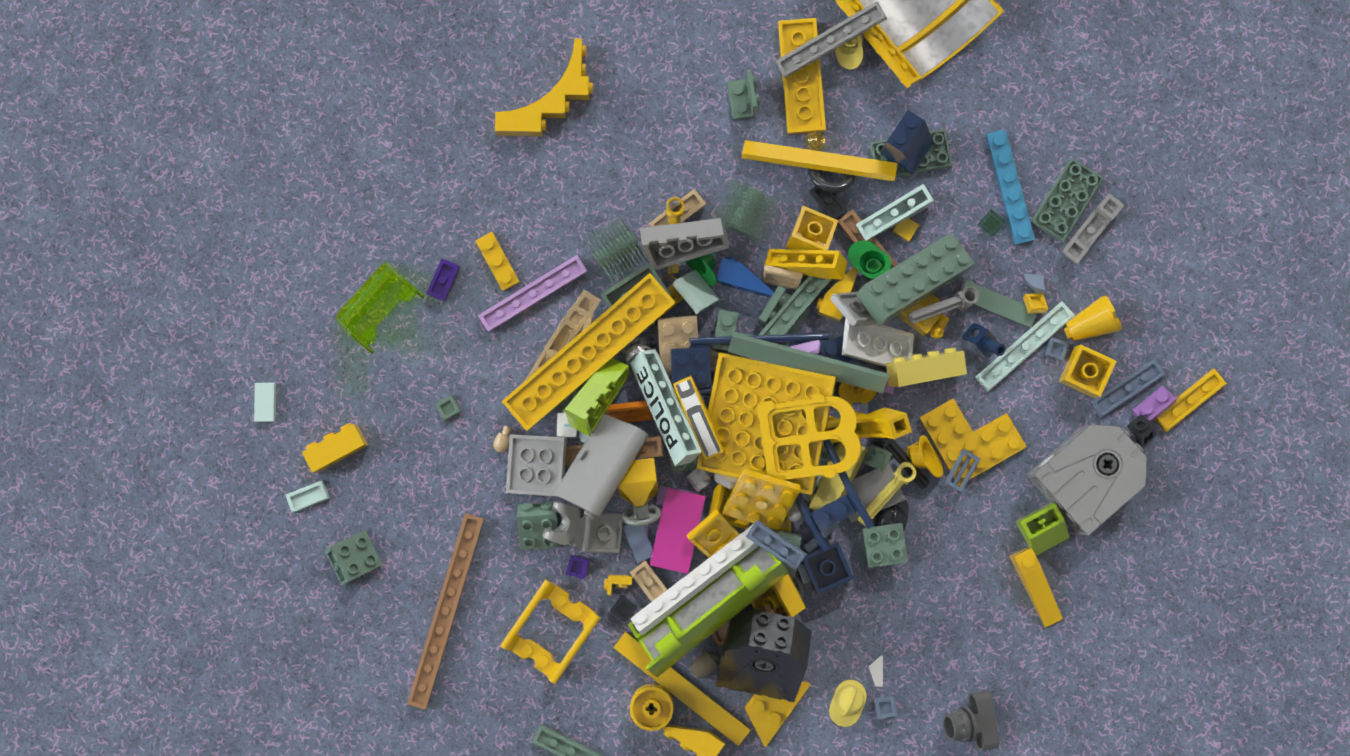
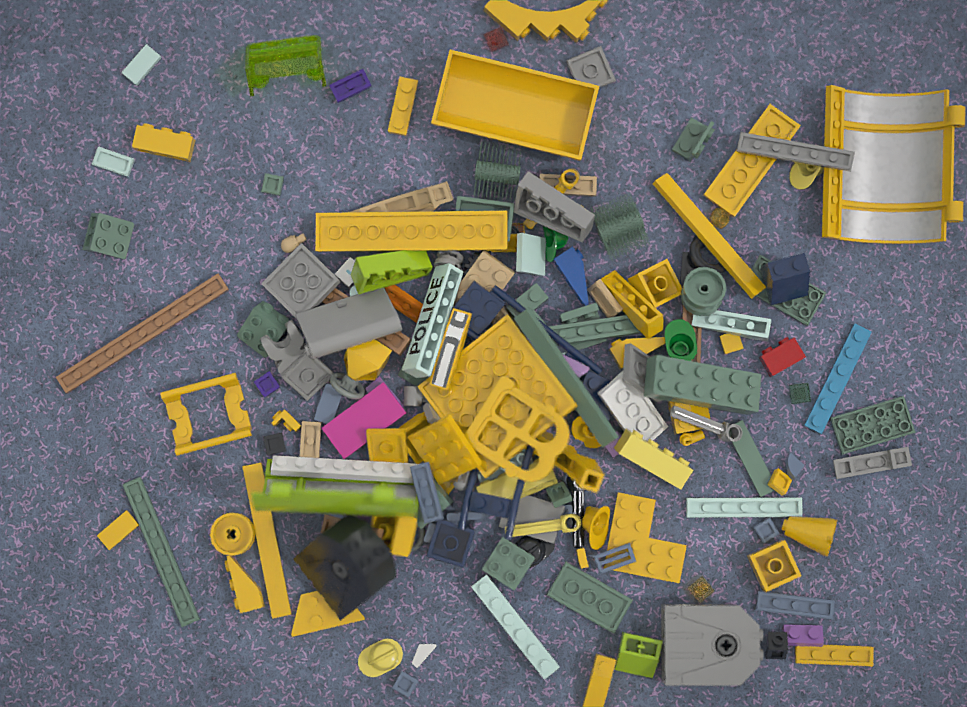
camera: 30 degrees right, 0 degrees up
(525, 149) = (496, 39): none -> clear red plate
(532, 293) = (408, 152): lavender plate -> none
(585, 185) = (515, 105): none -> yellow piece
(619, 111) = (591, 68): none -> light grey tile
(704, 665) = (298, 537): dark tan brick -> none
(853, 206) = (703, 291): none -> sand green wheel
(931, 589) = (515, 626): none -> light aqua brick
(936, 491) = (581, 555): none -> yellow tile
(954, 206) = (782, 356): none -> red brick
(967, 517) = (589, 597): none -> sand green tile
(984, 341) = (716, 477): dark blue bracket -> none
(1046, 437) = (700, 589): none -> clear yellow tile

